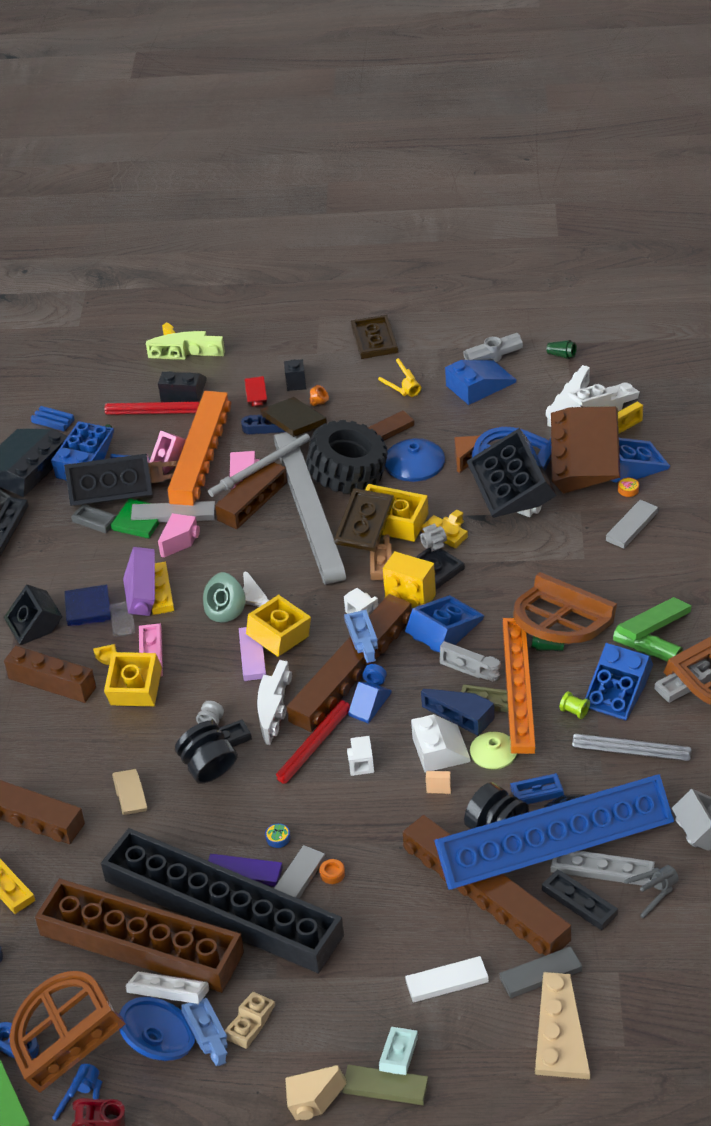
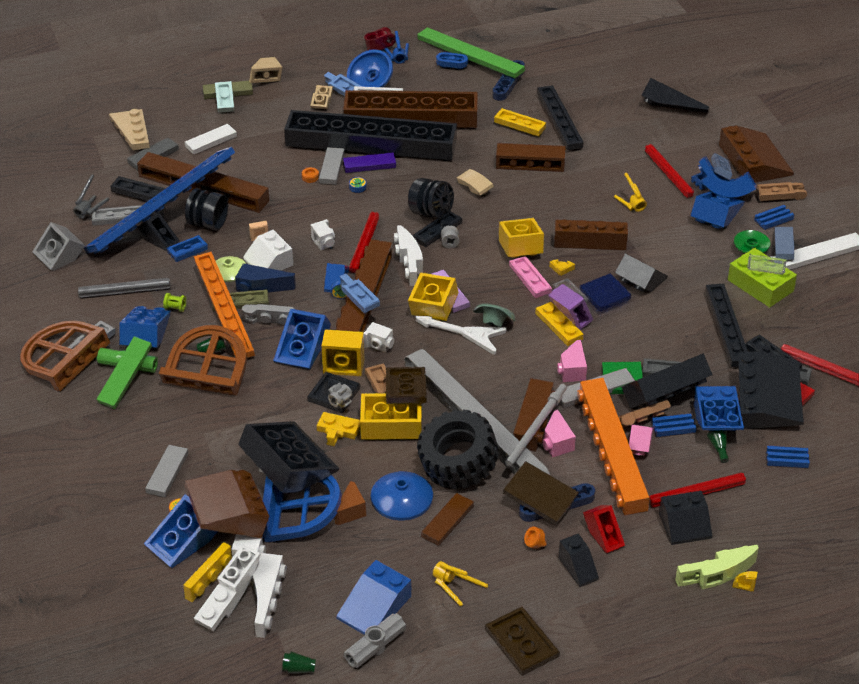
camera: 155 degrees right, 0 degrees up
(72, 1044) = (418, 41): dark orange window -> none

